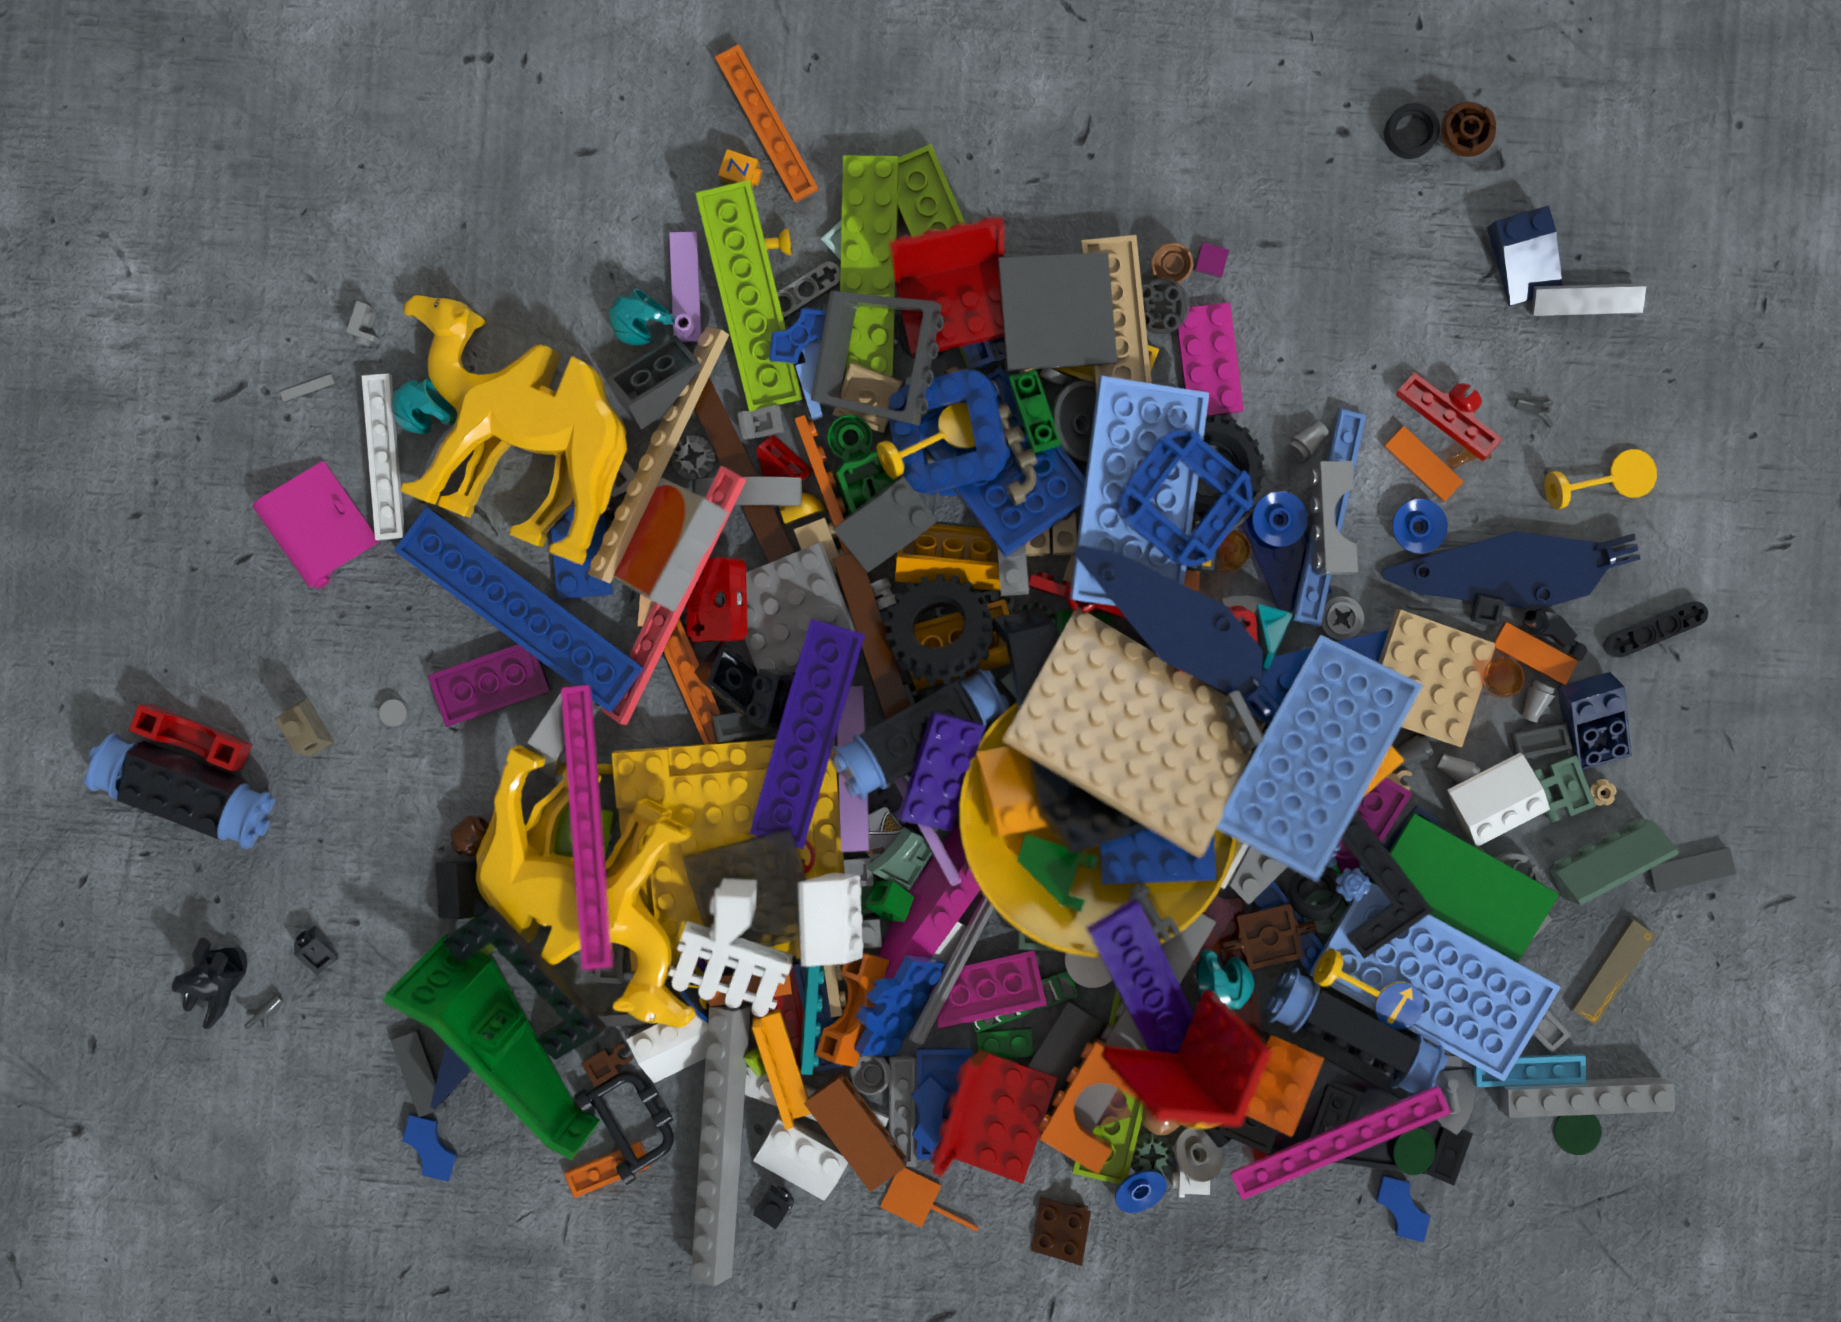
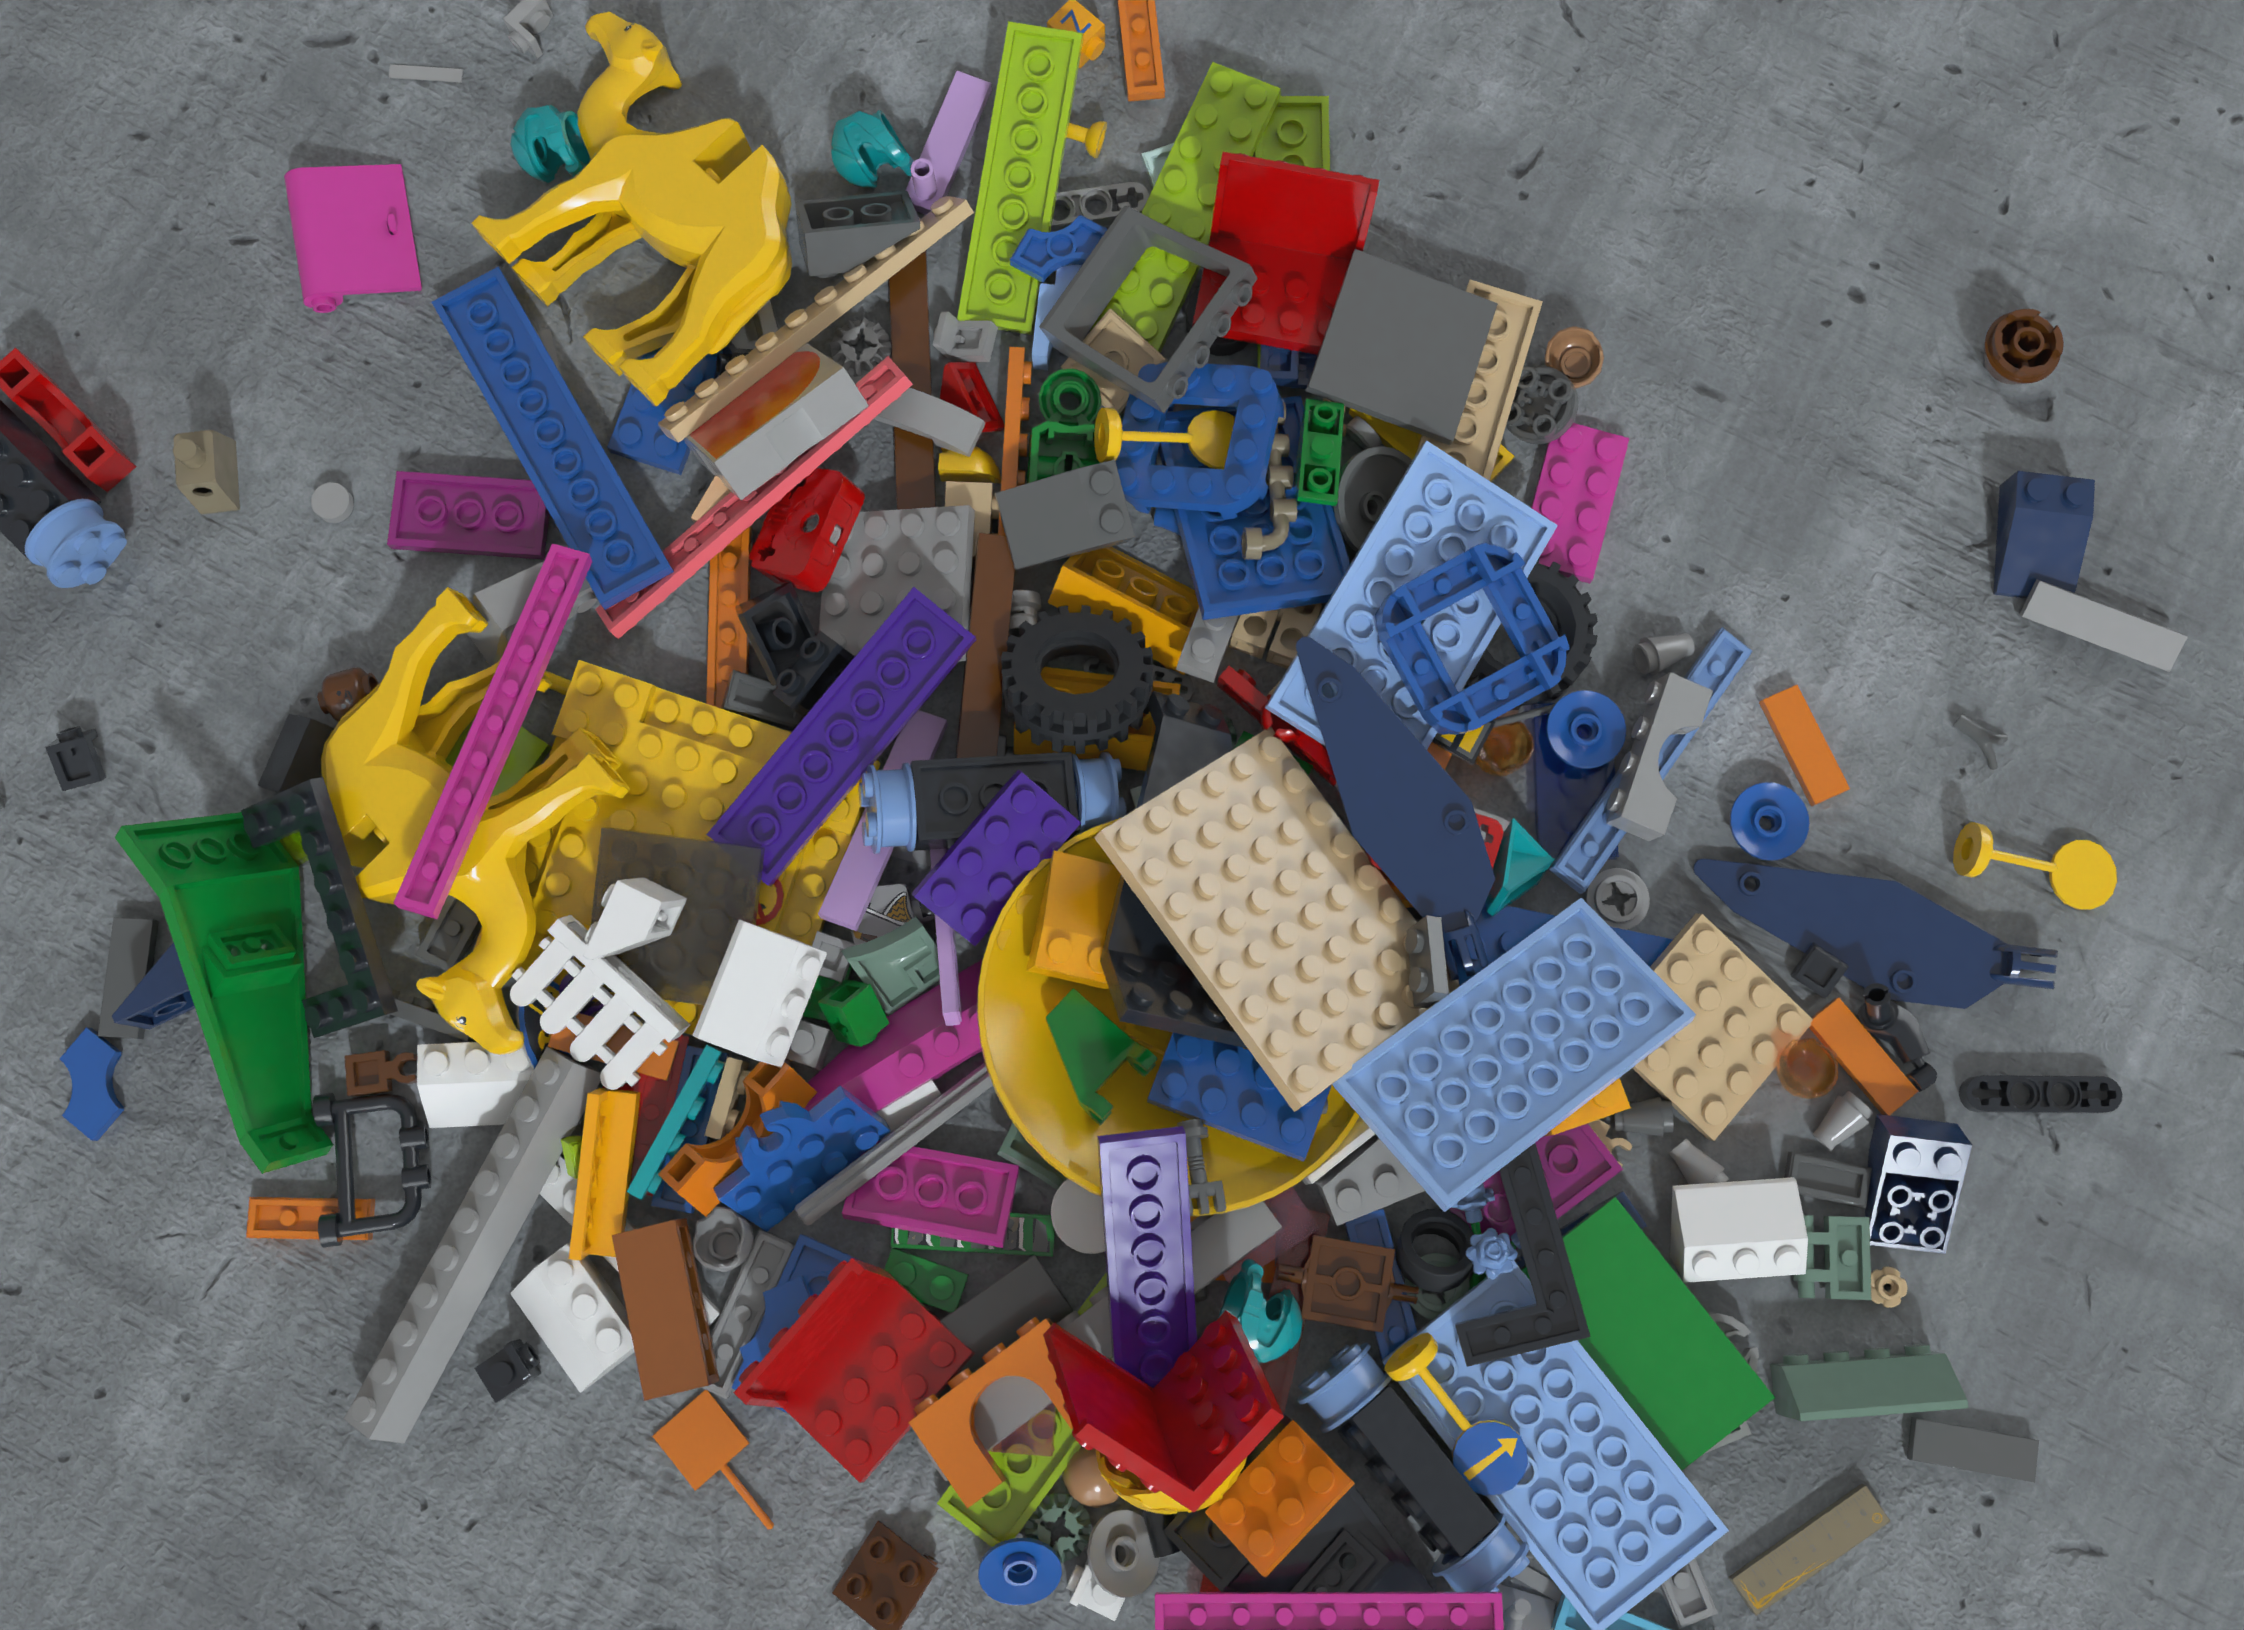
camera: 20 degrees right, 10 degrees down
(383, 457) = (474, 190): white plate -> none
(1211, 260) = (1626, 379): magenta tile -> none
(1426, 115) = (1966, 306): black tyre -> none
(1451, 413) = (1867, 692): red plate -> none
(1462, 458) = (1869, 758): clear orange bar -> none

